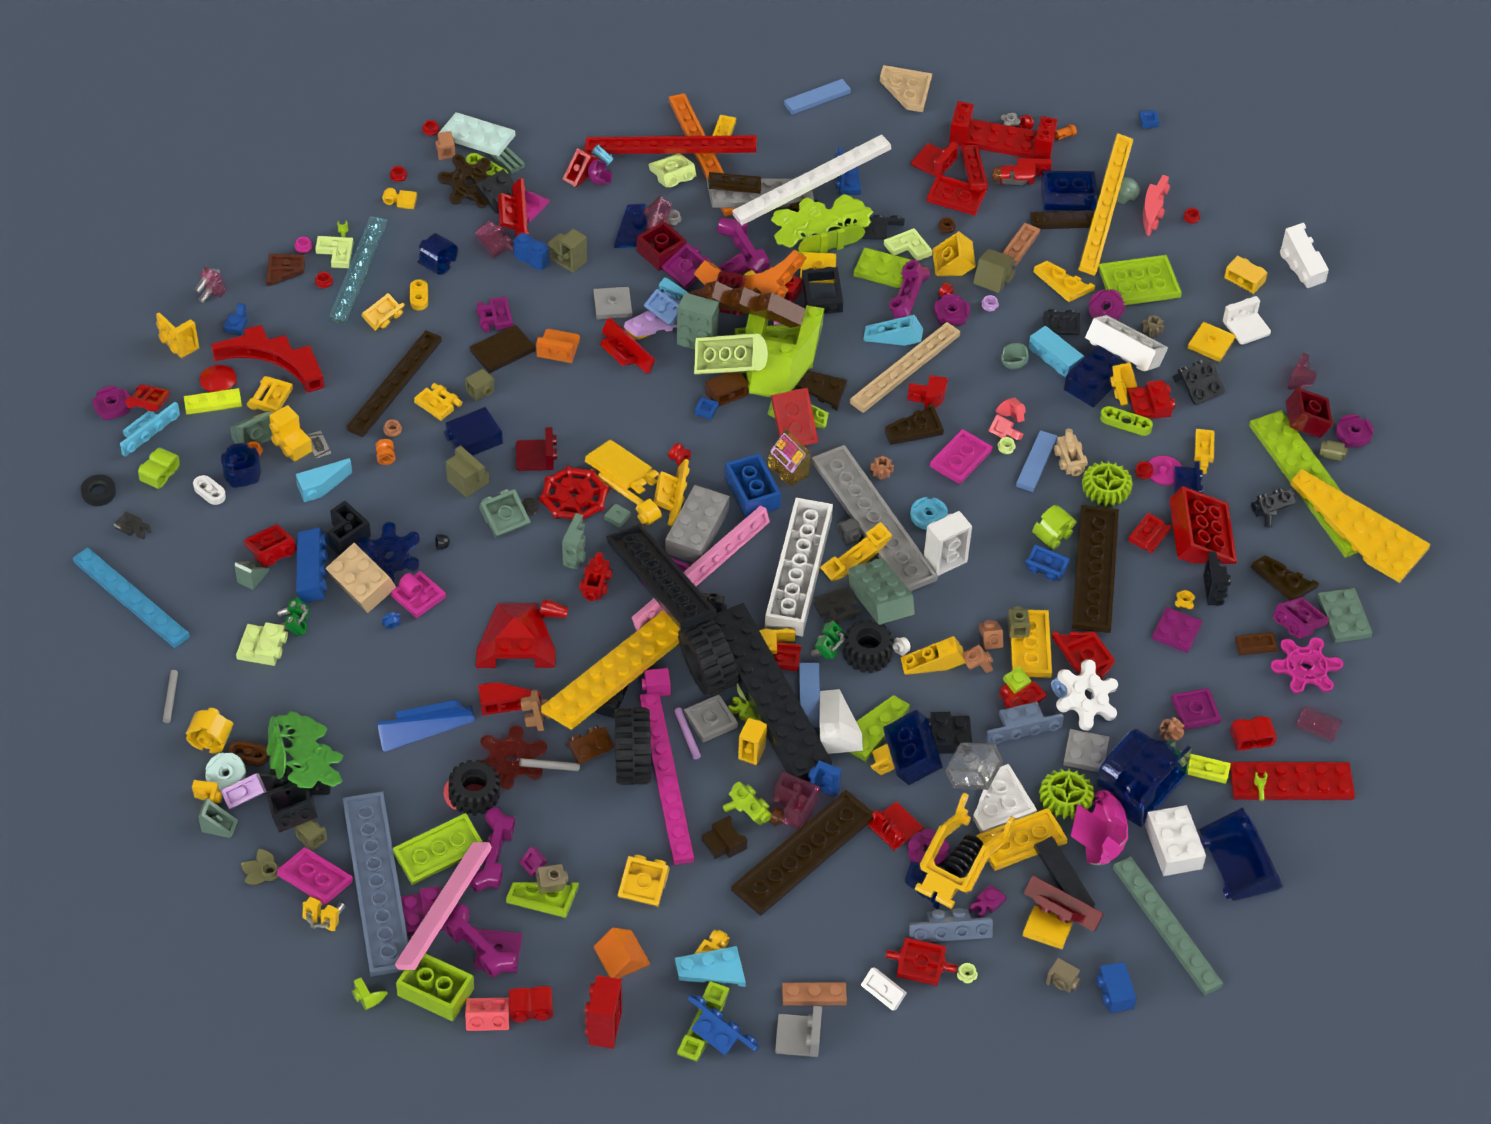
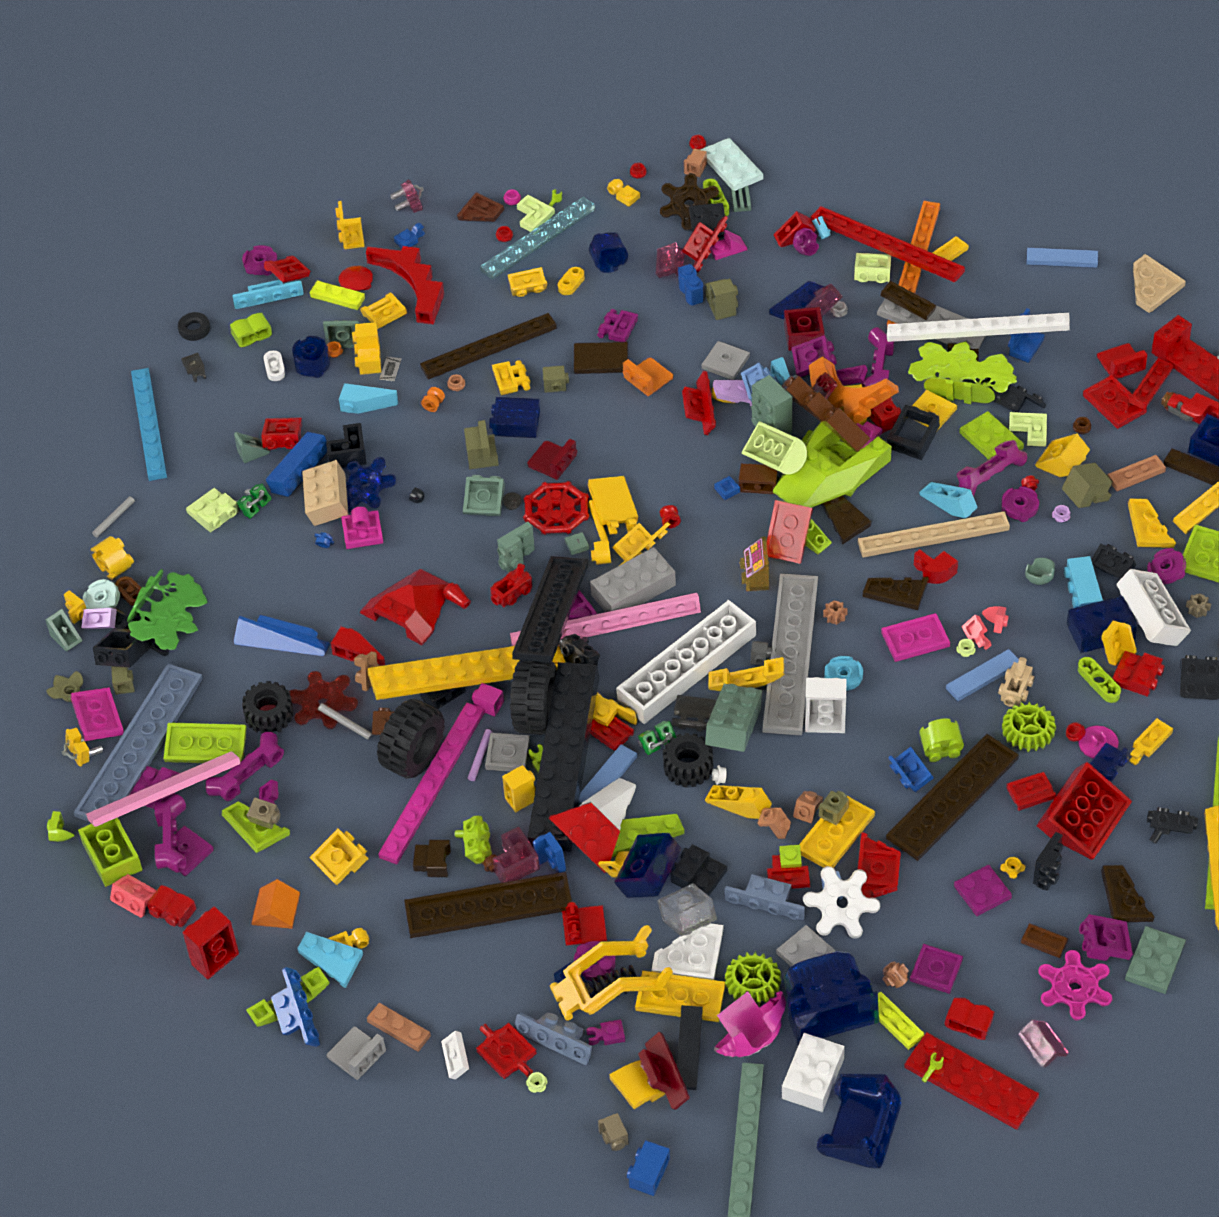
camera: 40 degrees right, 0 degrees up
(752, 484) = (706, 571): blue brick -> none
(847, 744) = (589, 831): none -> red wing

